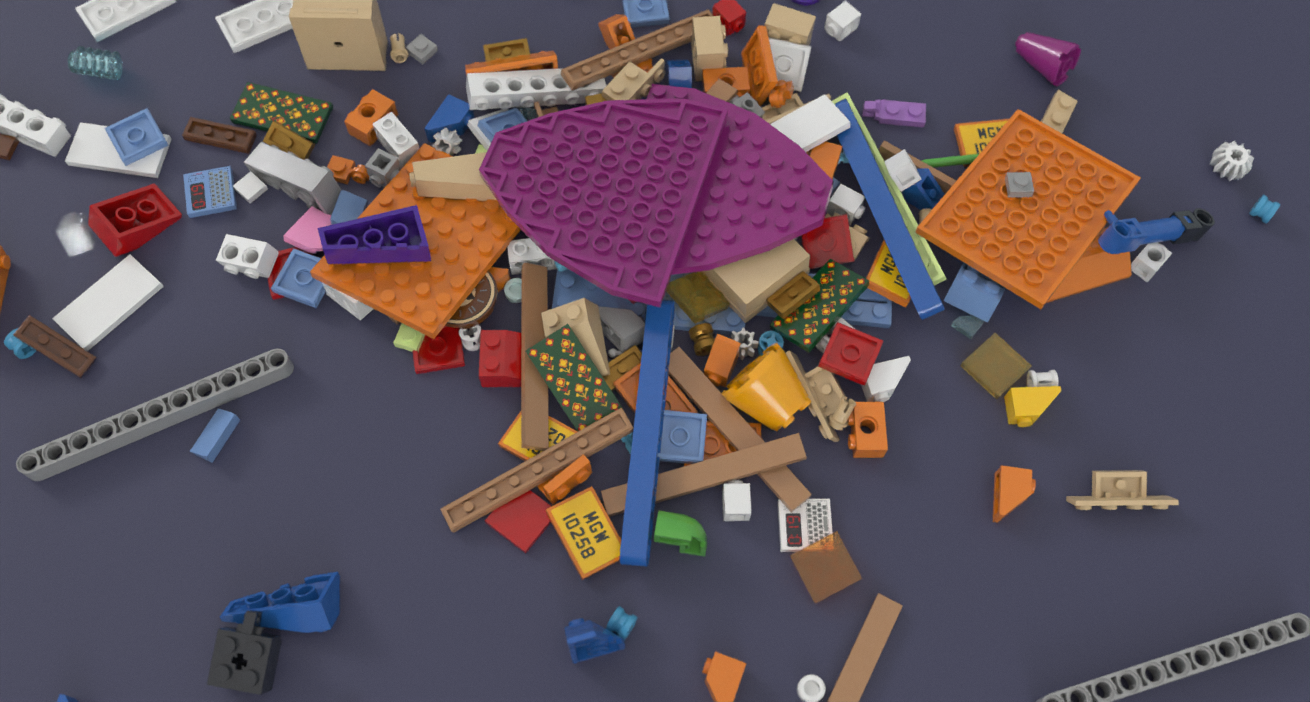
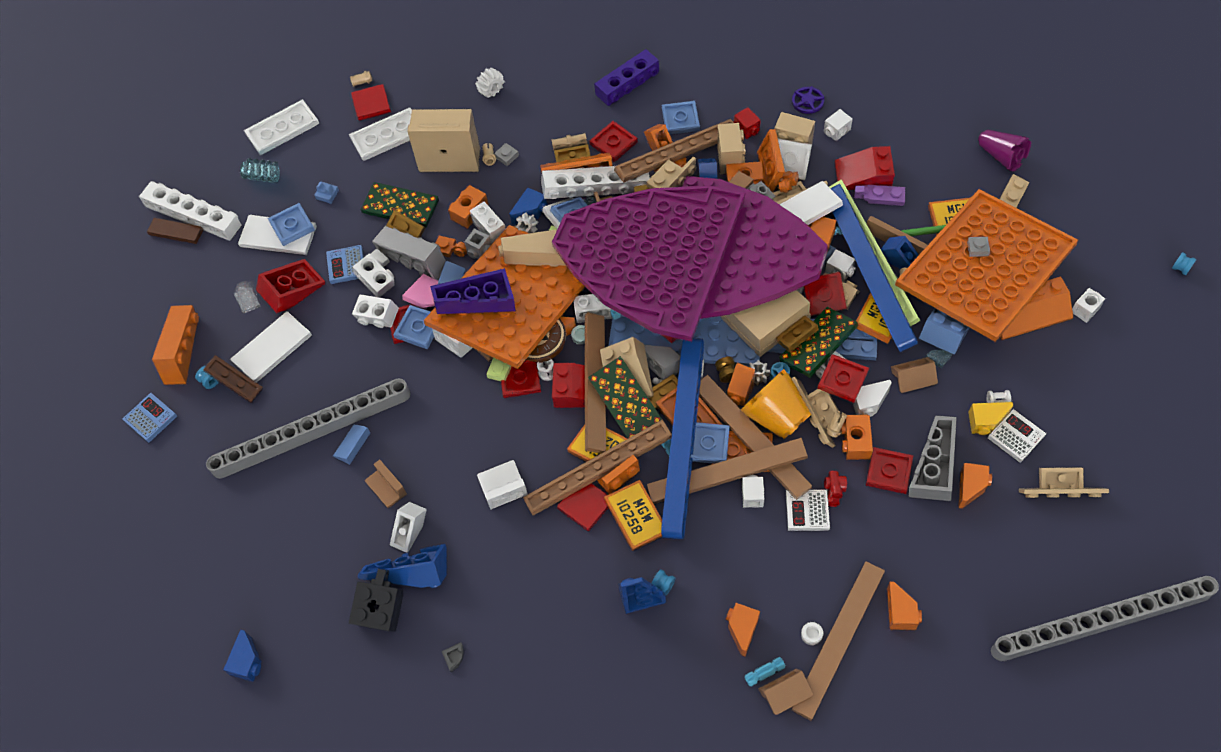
camera: 10 degrees right, 5 degrees down
(184, 94) = (326, 192): none -> medium blue tile
(219, 135) = (353, 222): reddish brown tile -> none
(241, 211) = (370, 278): none -> white brick
(259, 492) = (385, 485): none -> medium nougat panel
(287, 548) = (407, 526): none -> white slope
(413, 491) = (502, 484): none -> white bracket
(503, 34) = (569, 141): none -> tan pin
(559, 34) = (613, 140): none -> red tile
(681, 531) = (709, 512): bright green brick -> none
(697, 296) = (721, 336): clear yellow tile -> none
(825, 567) = (823, 540): clear orange tile -> none
(840, 493) = (835, 485): none -> red plate
(878, 78) = (866, 167): none -> red slope
(902, 170) = (885, 237): white brick -> none
(907, 473) = (889, 470): none -> red tile
(924, 656) = (902, 609): none -> orange slope
(939, 347) = (915, 374): none -> medium nougat panel
(967, 467) = (935, 469): none -> light grey wedge
(996, 365) = (961, 387): clear yellow tile -> none
(1064, 428) = (1016, 436): none -> white tile
(1129, 234) = (1111, 279): blue piece -> none
(1232, 161) = (1157, 226): white gear -> none

